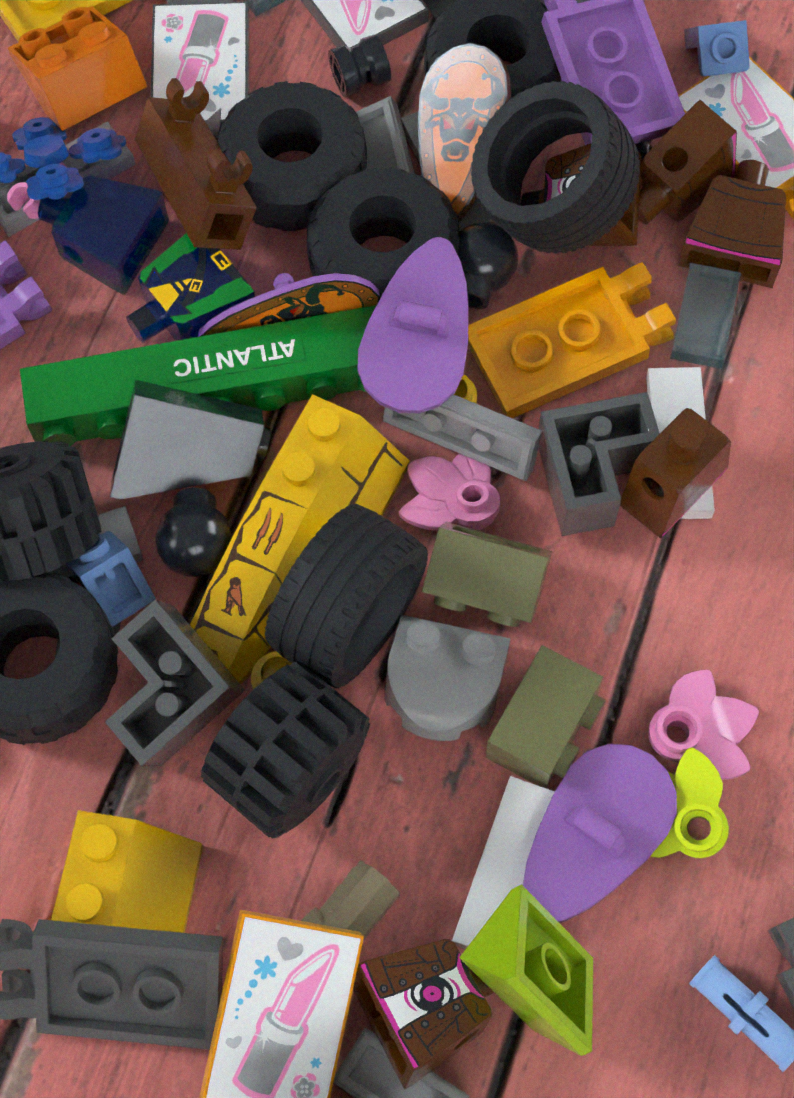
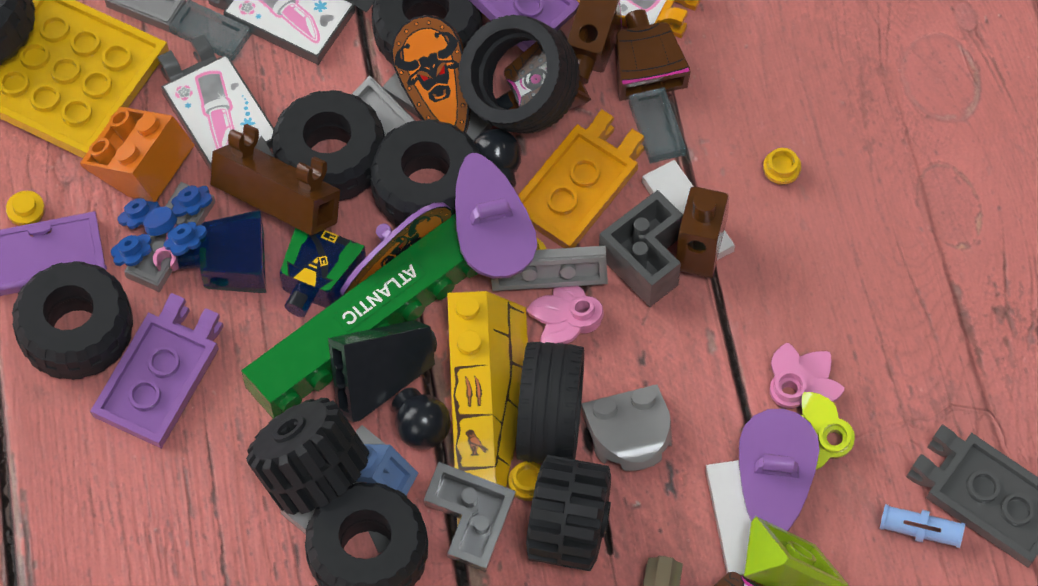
camera: 30 degrees left, 5 degrees down
(359, 65) = (333, 63): black wheel -> none
(486, 574) = (622, 350): olive brick -> none
(545, 717) = (707, 419): olive brick -> none

